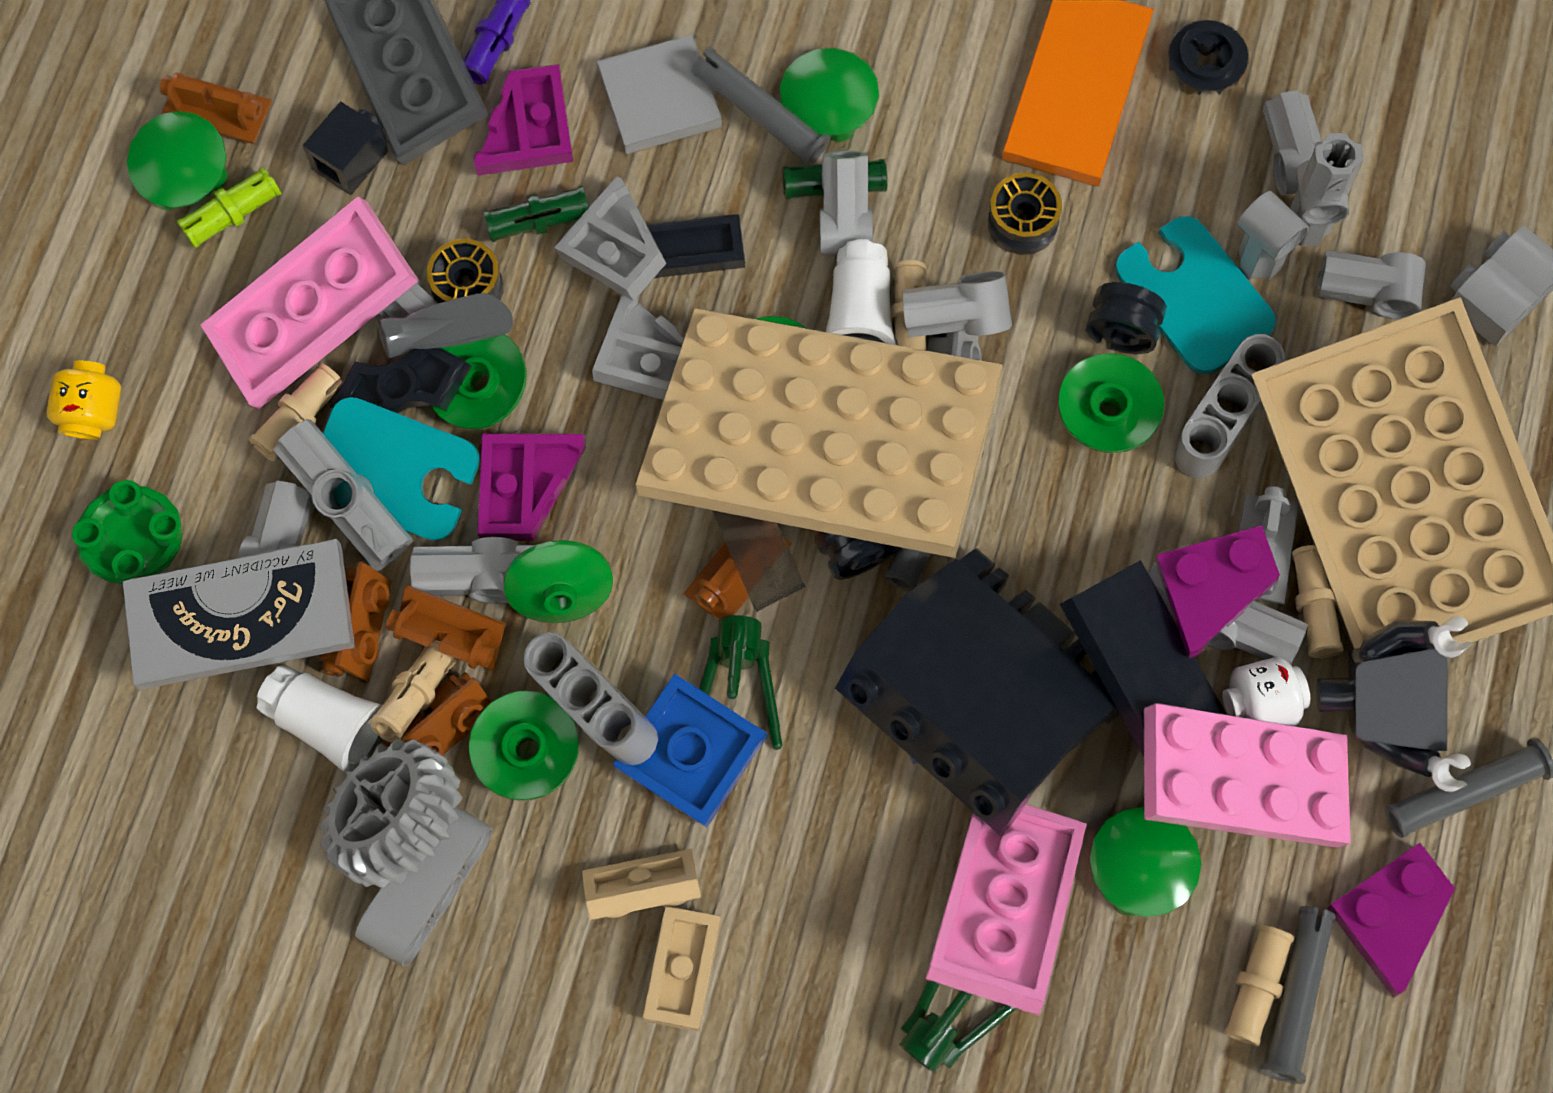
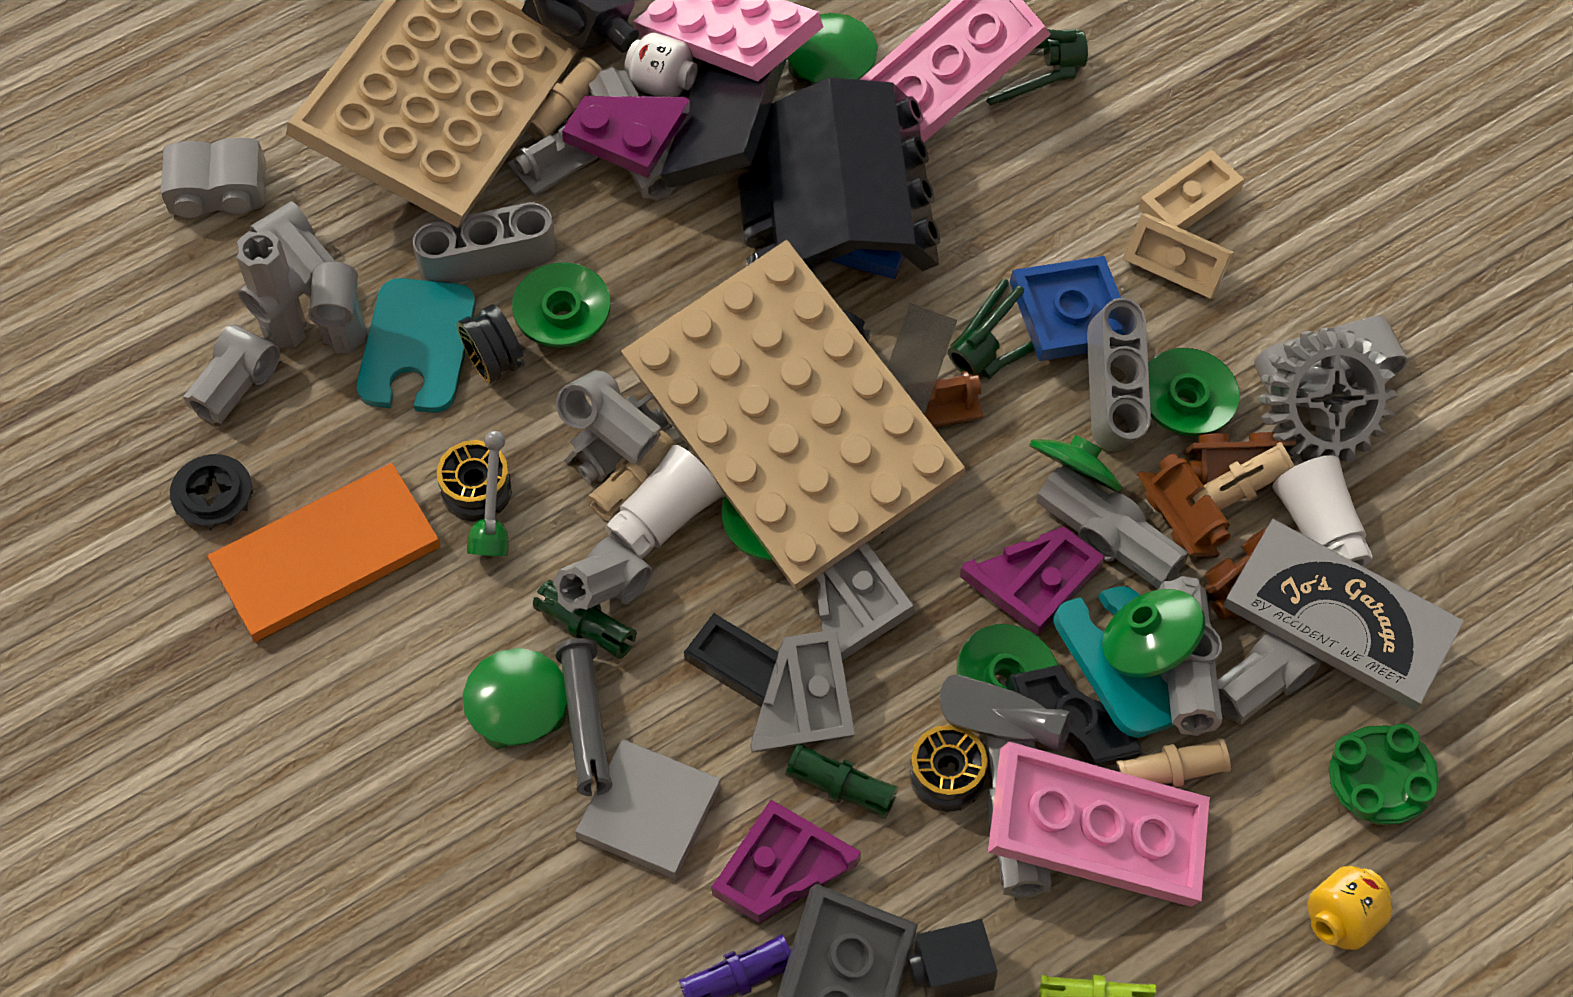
camera: 140 degrees left, 10 degrees down
(368, 489) = (1153, 633): none -> green dish
(973, 181) = (489, 535): none -> hinge

